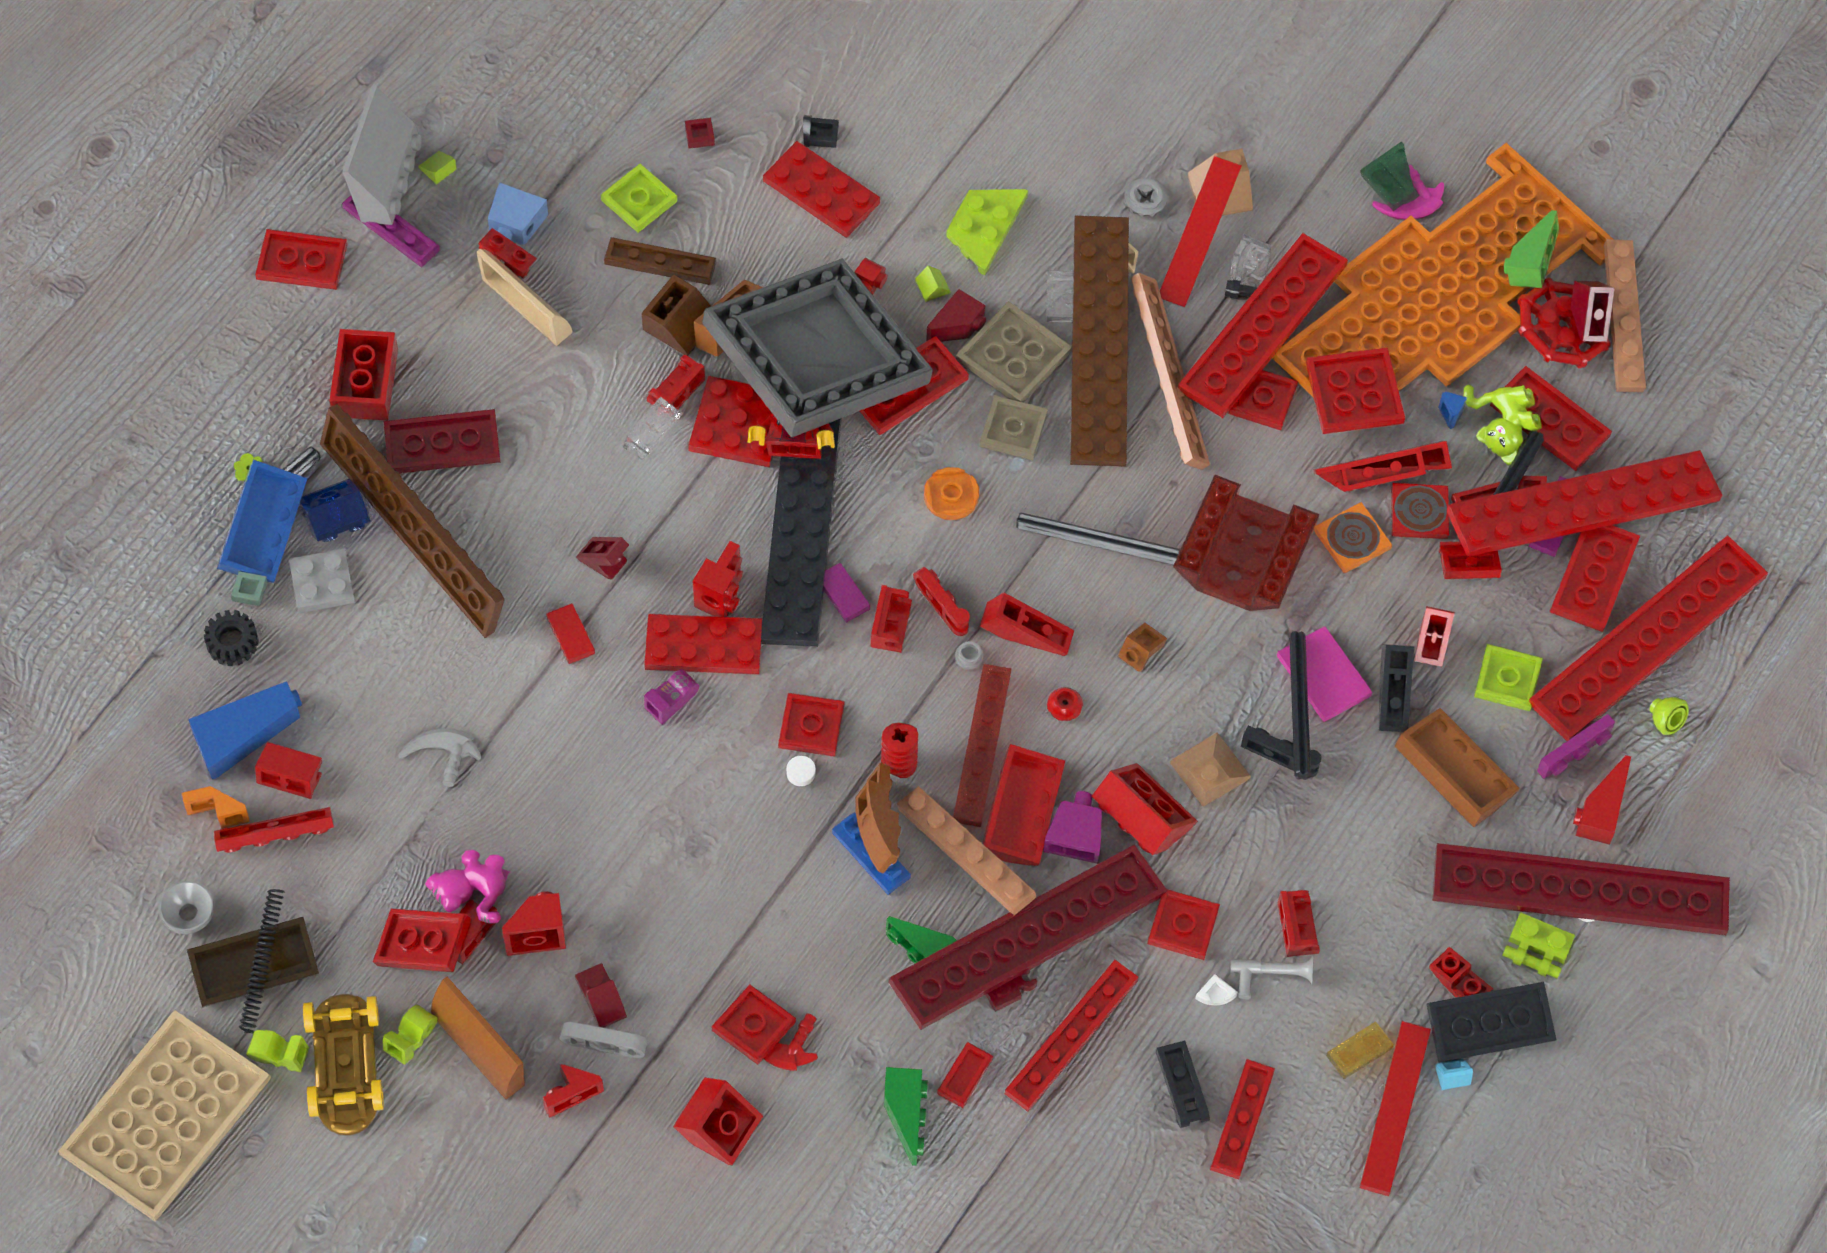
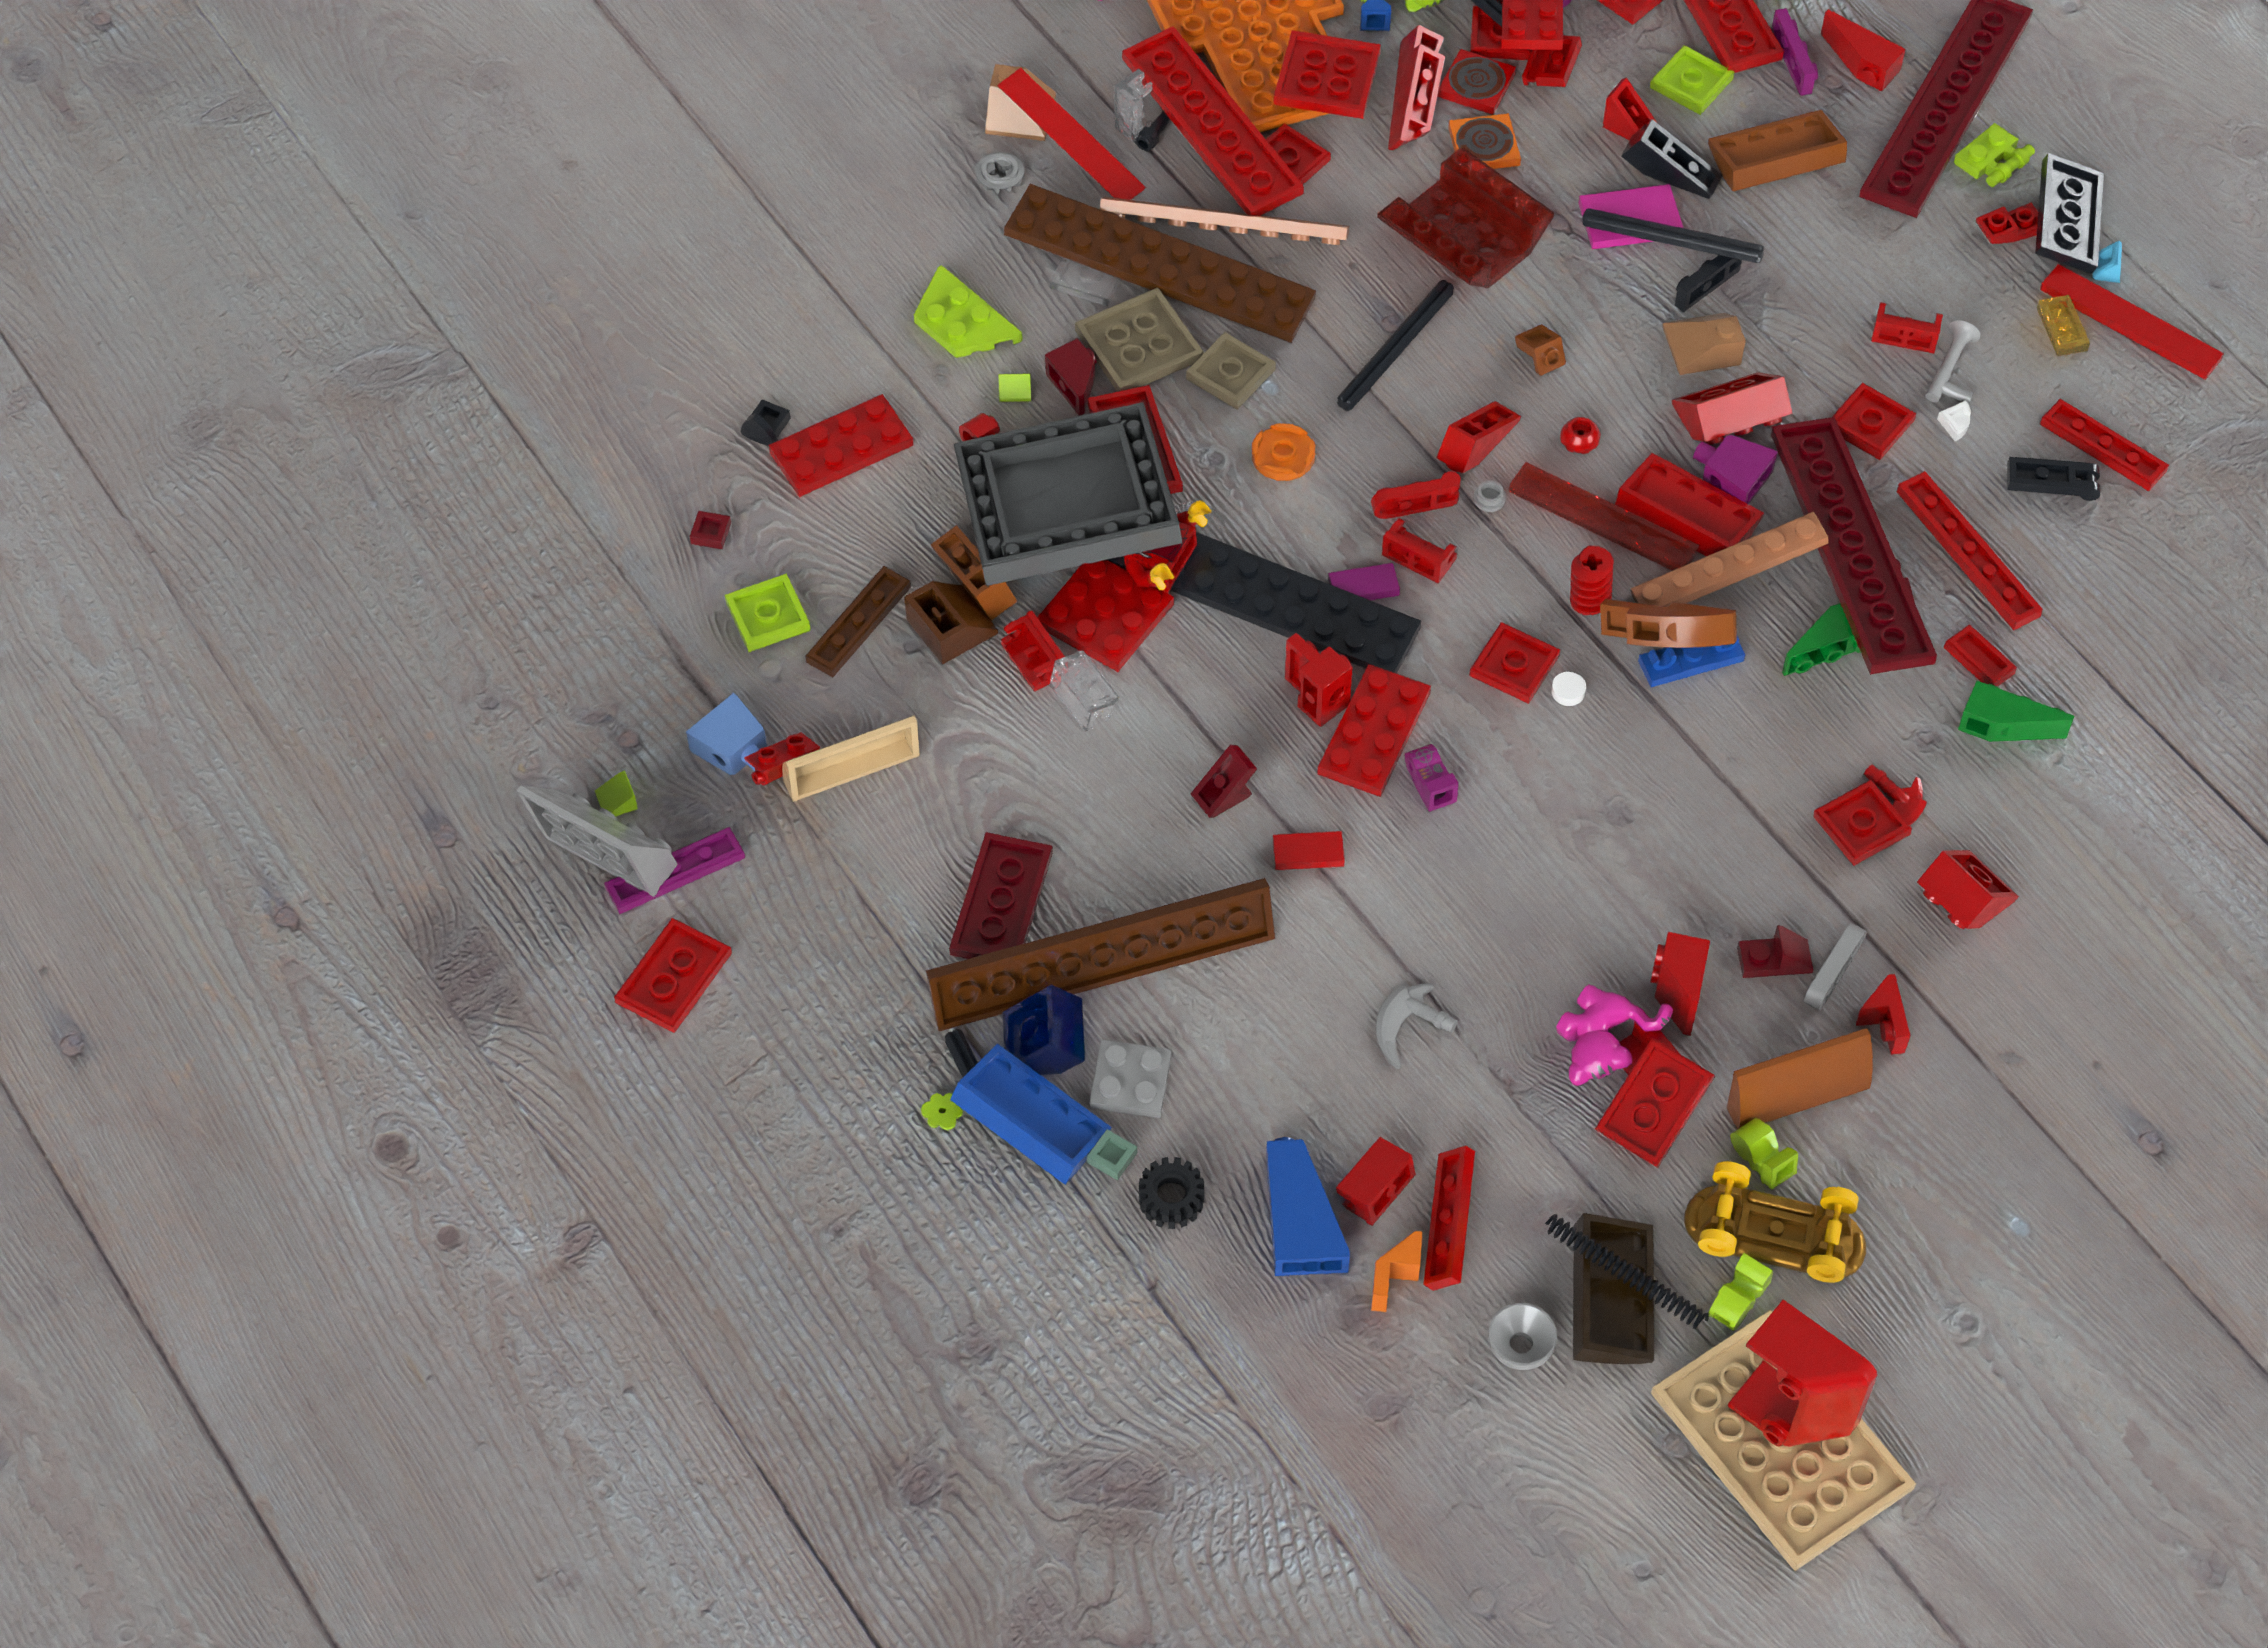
camera: 65 degrees left, 5 degrees down
(170, 1088) = (1817, 1384): none -> red windscreen
(364, 373) = (879, 946): red brick -> none

